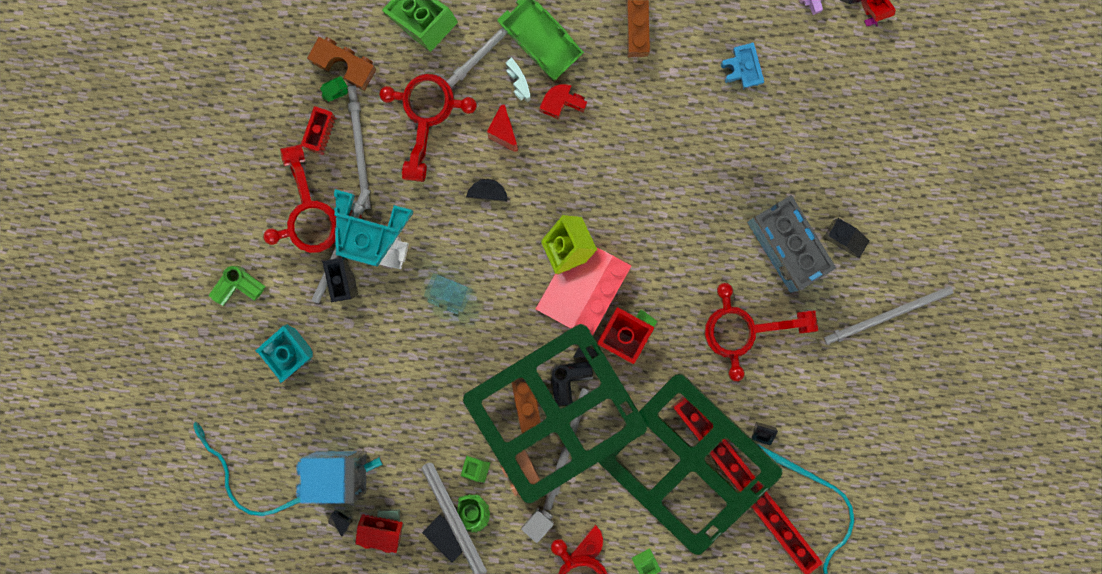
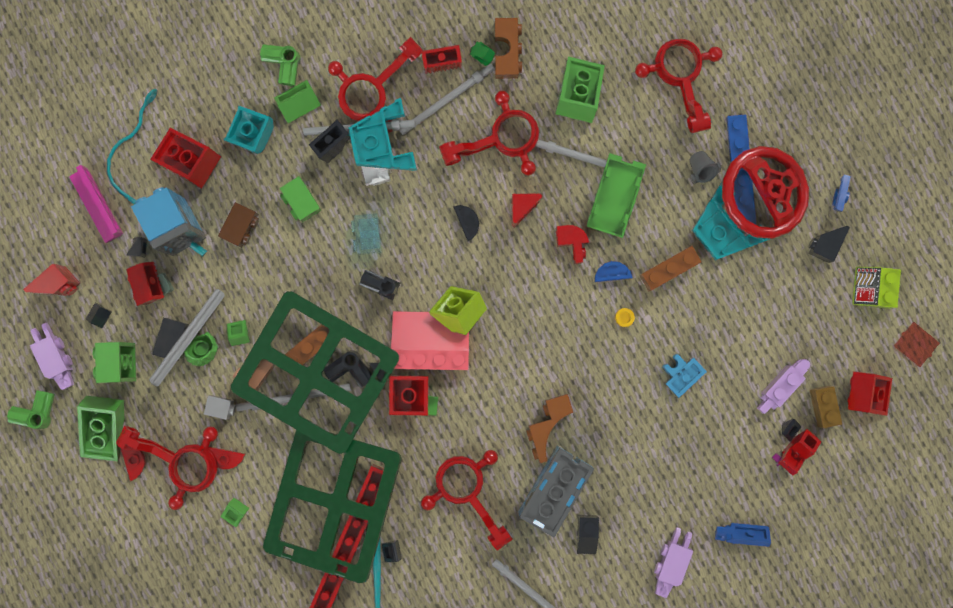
camera: 60 degrees right, 0 degrees up
(275, 541) = (95, 204): none -> dark pink fence
(278, 428) = (186, 157): none -> red slope
(282, 291) = (297, 101): none -> bright green brick
(371, 412) = (238, 225): none -> reddish brown brick
(379, 339) = (300, 199): none -> bright green brick
(506, 305) = (383, 285): none -> black piece
(520, 86) = (565, 203): light aqua slope -> none
(610, 80) = (612, 271): none -> blue plate
(660, 92) = (624, 317): none -> yellow tile
(726, 231) = (538, 432): none -> dark orange arch
(917, 172) = (673, 563): none -> lavender hinge
(925, 91) = (744, 534): none -> blue hinge

